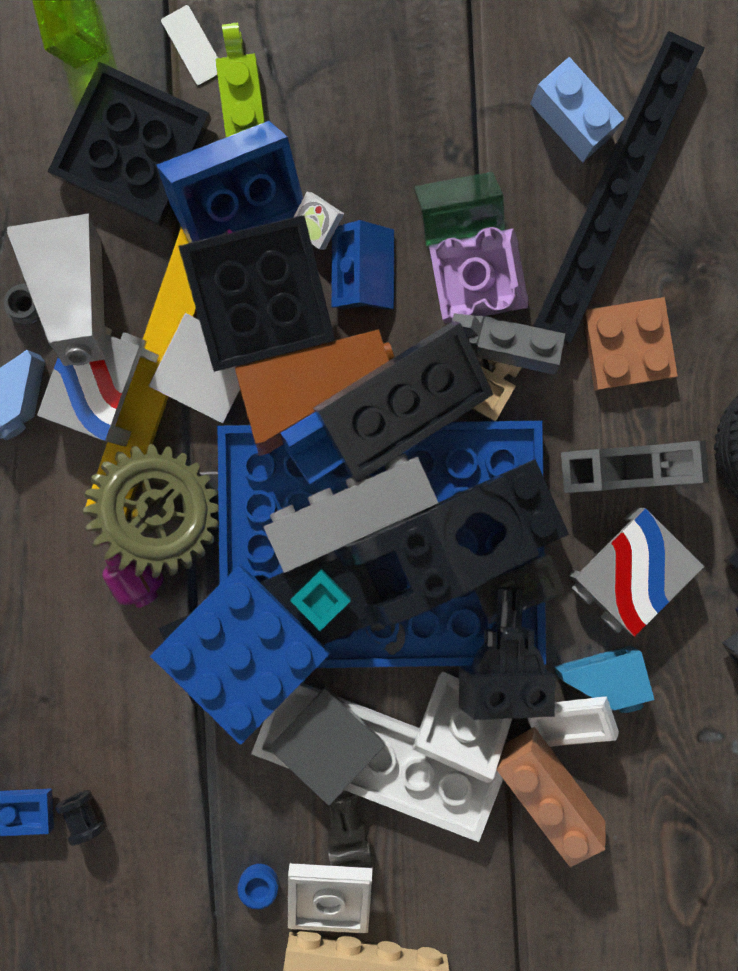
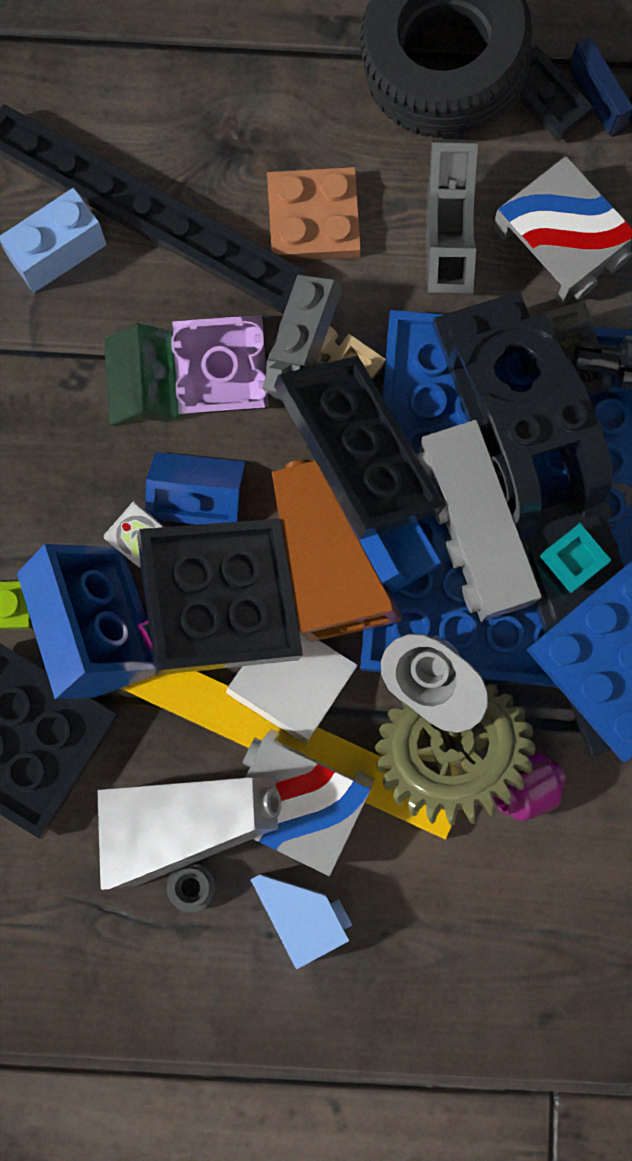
camera: 85 degrees left, 10 degrees down
(206, 486) = (435, 681): none -> light grey piece

